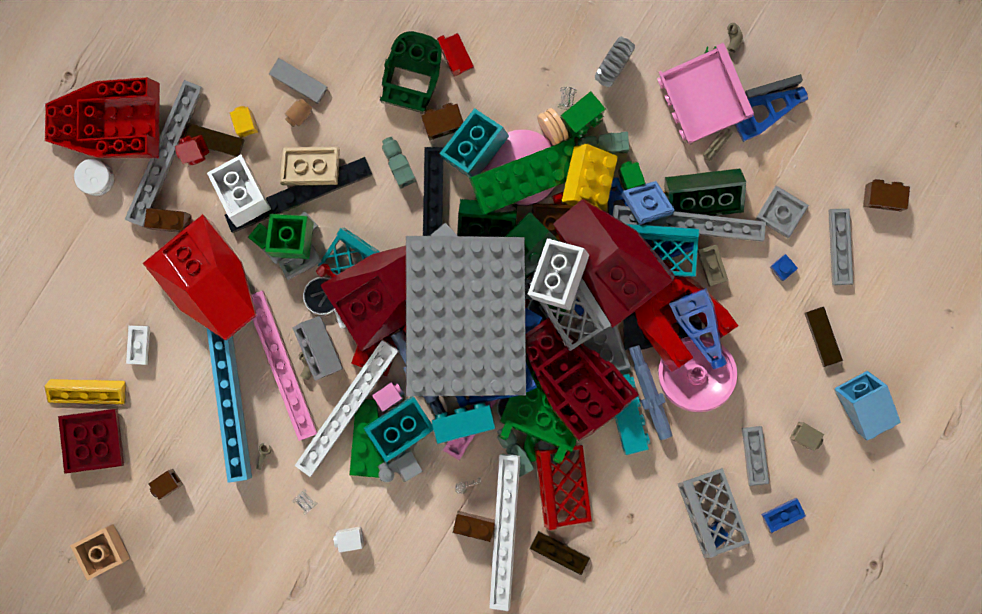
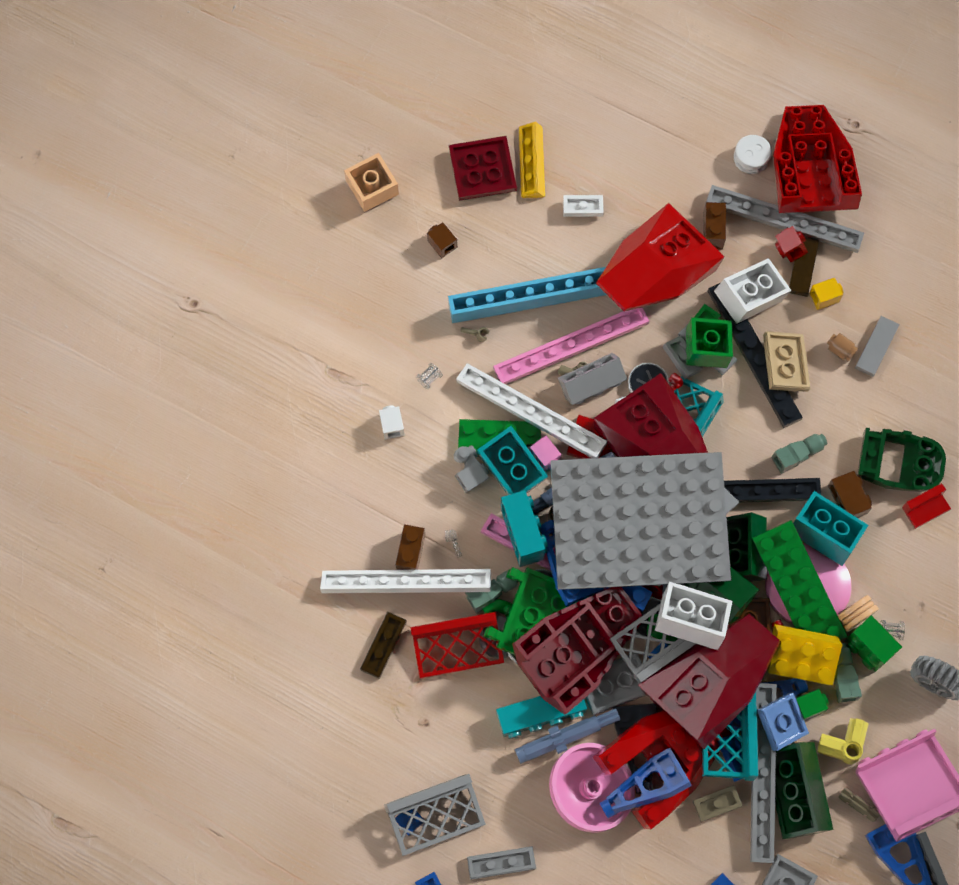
camera: 85 degrees right, 15 degrees down
(661, 142) = (837, 747): none -> light yellow piece

